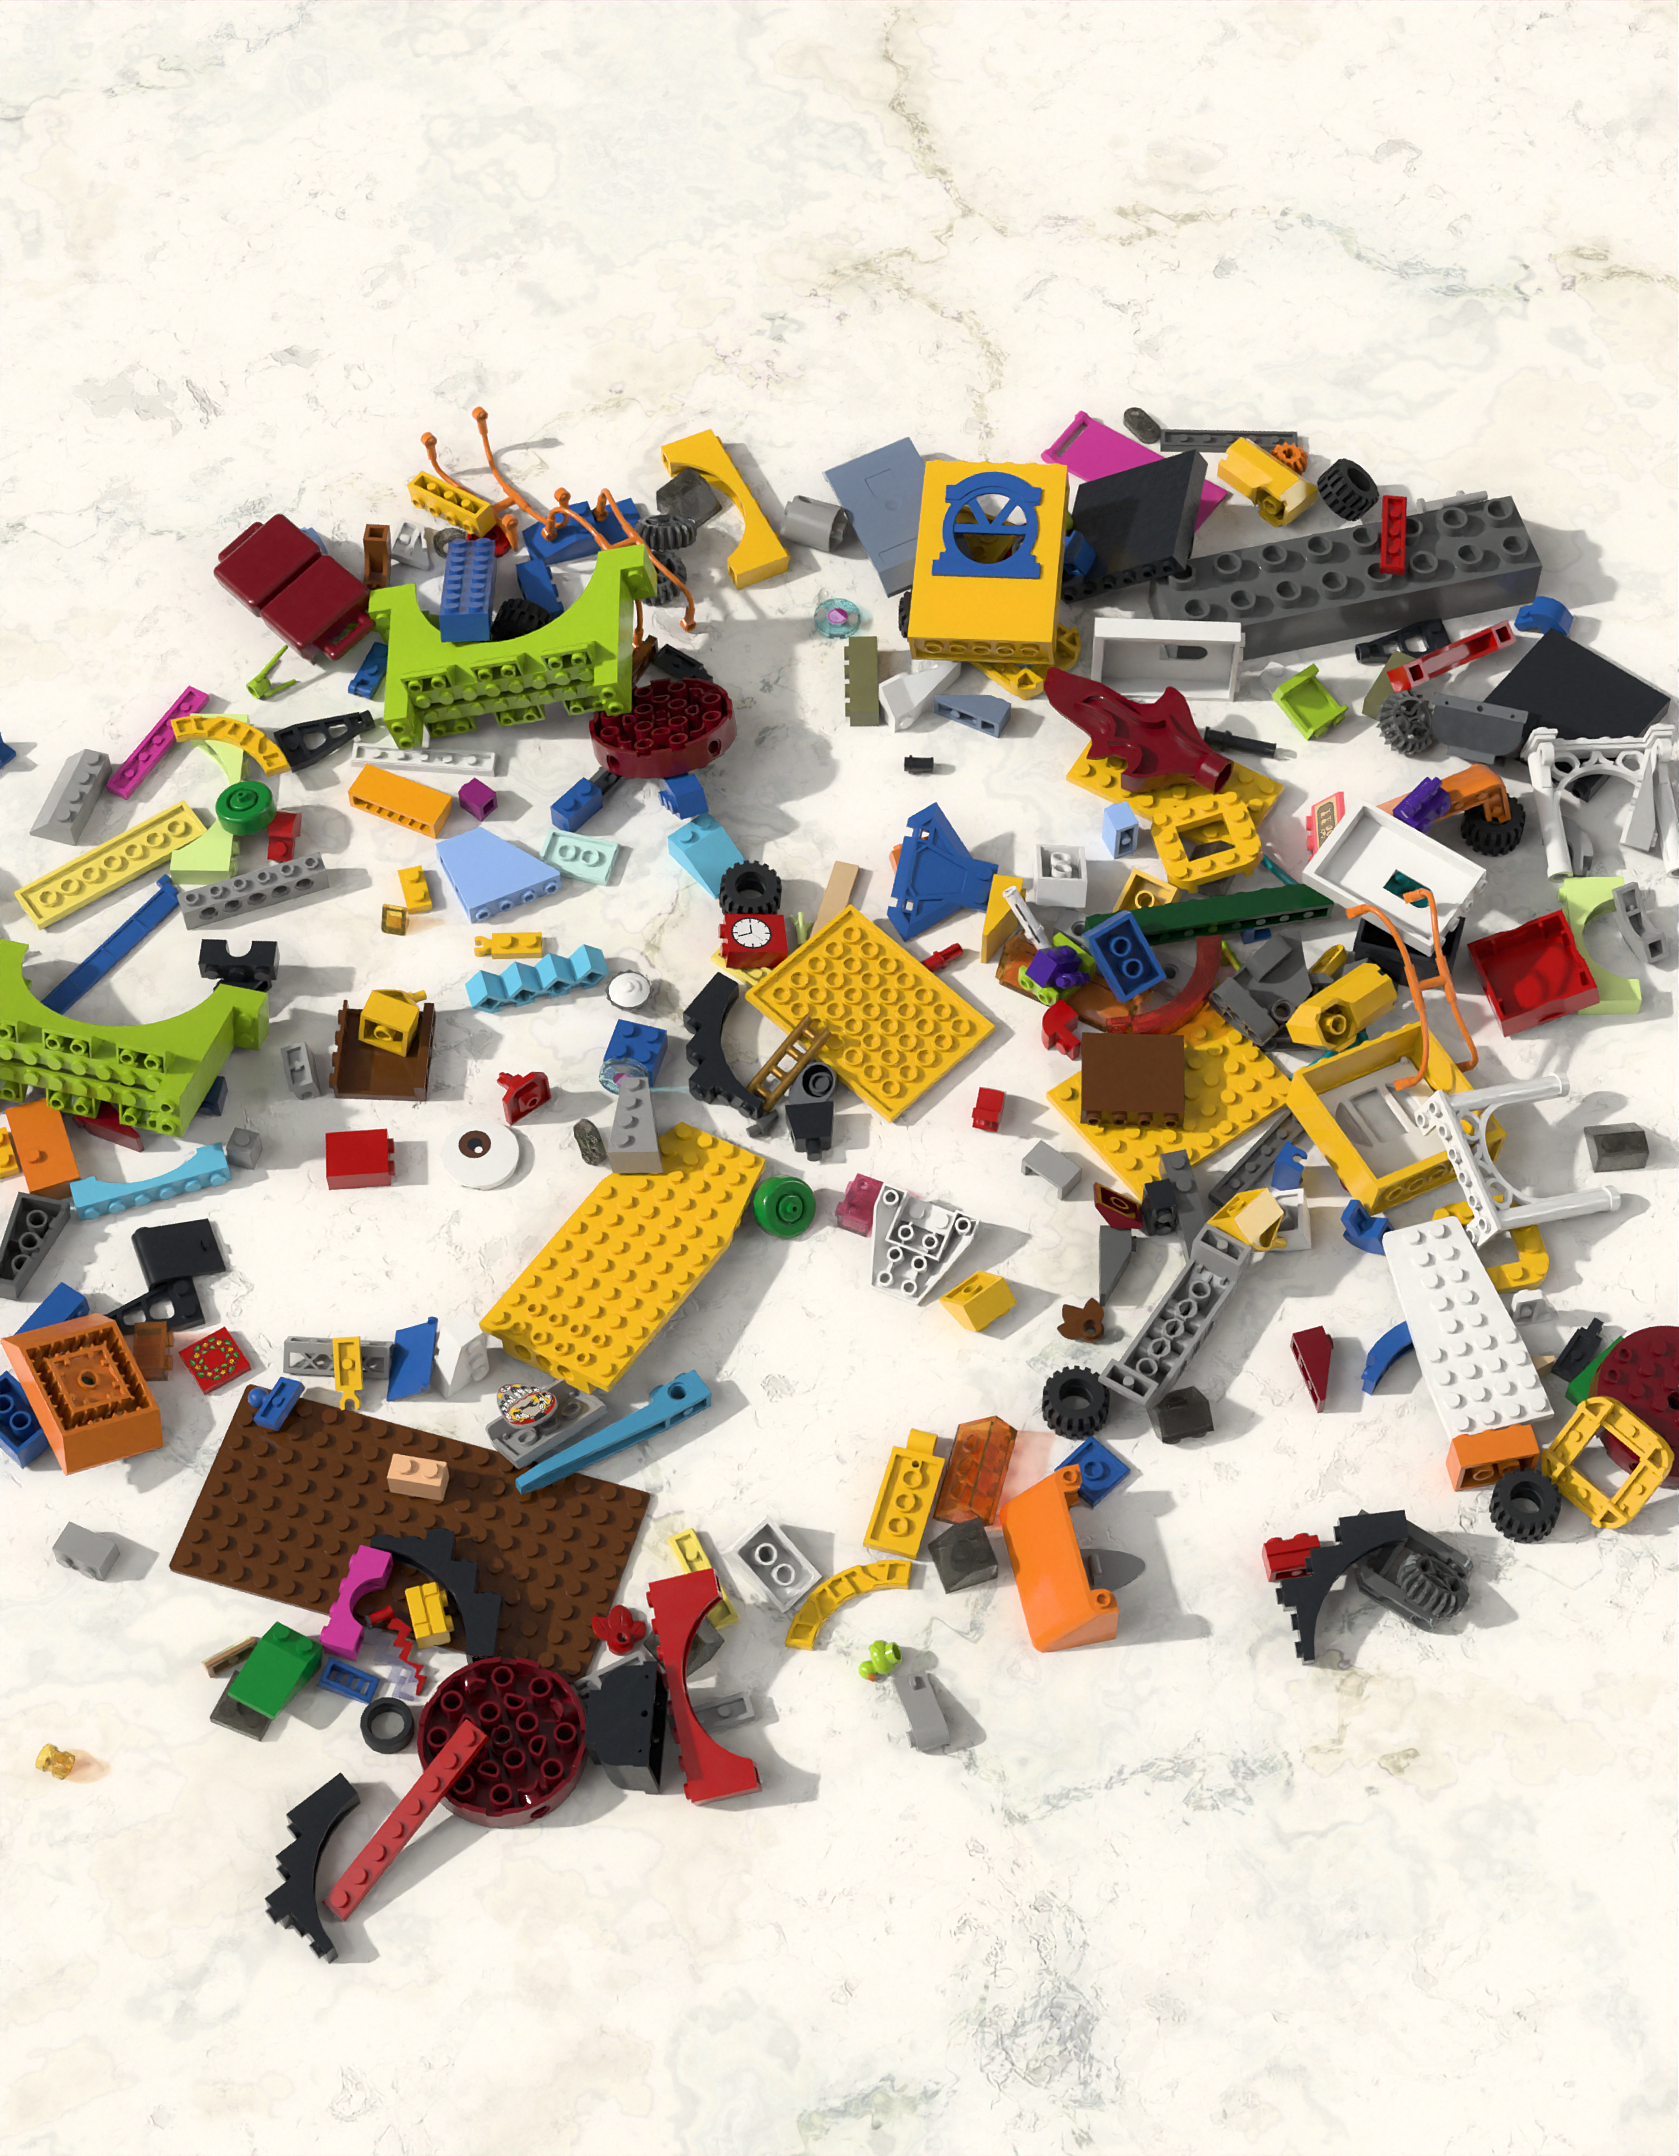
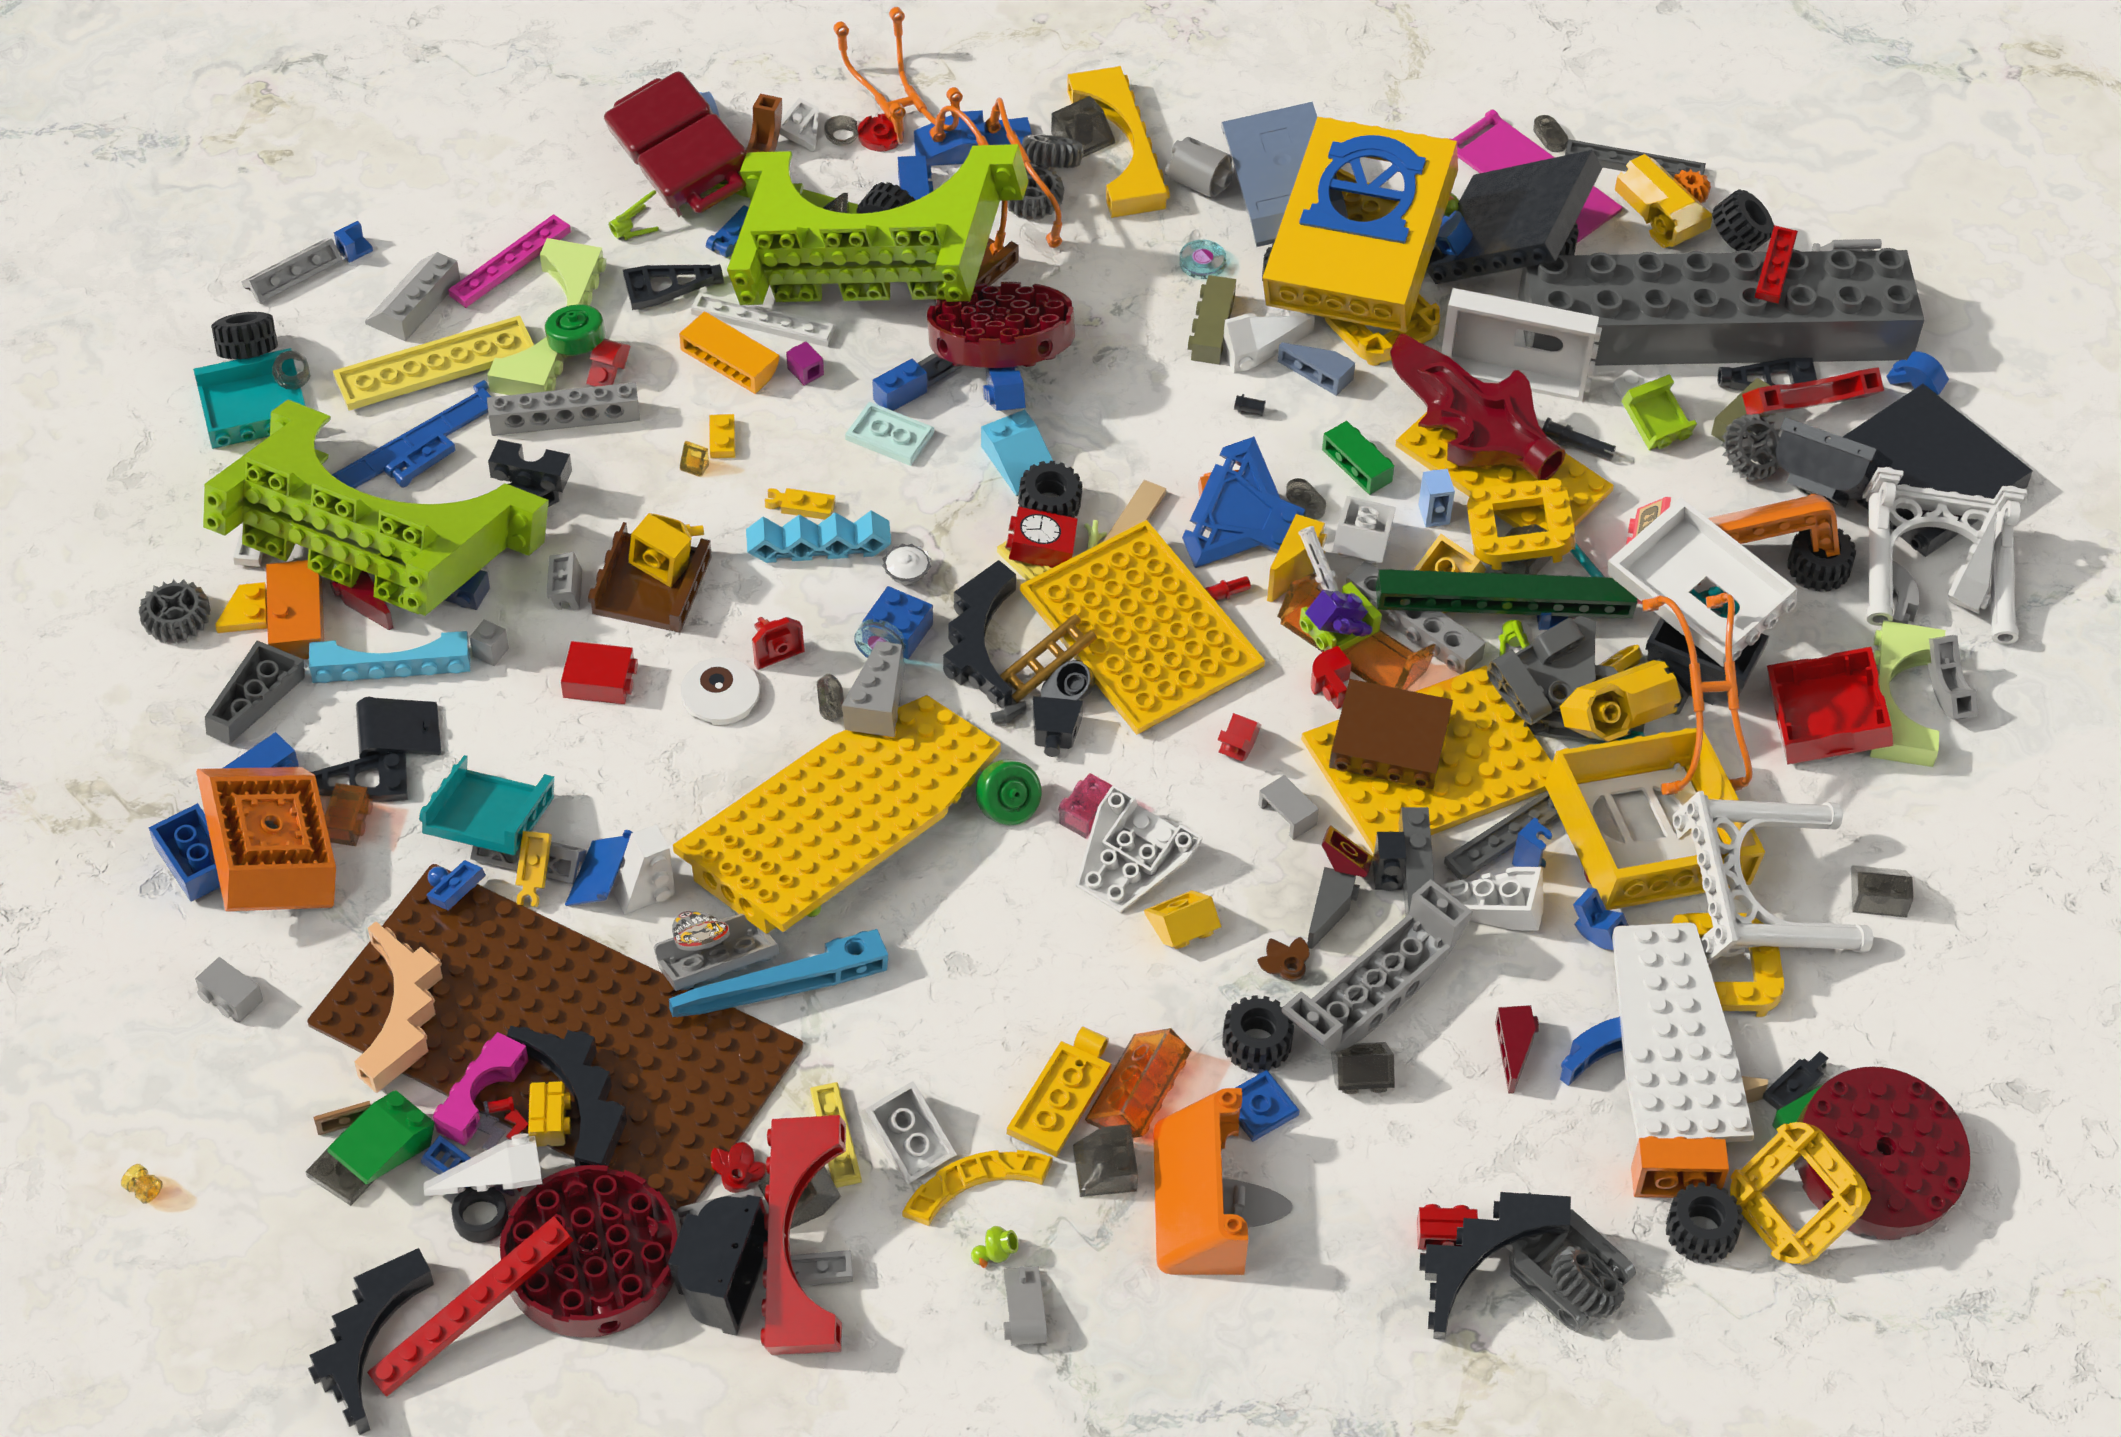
camera: 10 degrees right, 5 degrees down
(124, 968) = (419, 458): none -> blue plate
(214, 1360) = (403, 836): tile -> none
(236, 734) = (583, 261): yellow tile -> none
(268, 1569) = (401, 1038): none -> light nougat arch
(288, 1321) = (485, 809): none -> teal panel
(403, 1673) = (508, 1163): none -> white wedge
(418, 1477) = (573, 979): light nougat brick -> none
(451, 504) = (850, 92): yellow brick -> none
(468, 590) = (842, 167): blue brick -> none
(493, 874) = (802, 433): light blue slope -> none
(679, 664) = (1033, 272): black hinge -> none
(997, 851) = (1309, 499): none -> clear smoke plate
(1035, 800) = (1358, 457): none -> green brick
(1123, 956) = (1408, 612): blue brick -> none
(1186, 1004) = (1463, 671): clear red arch -> none
(1252, 1219) = (1481, 887): yellow piece -> none
(1423, 805) = (1746, 516): dark purple brick -> none
(1531, 1308) = (1755, 1029): white wing -> none

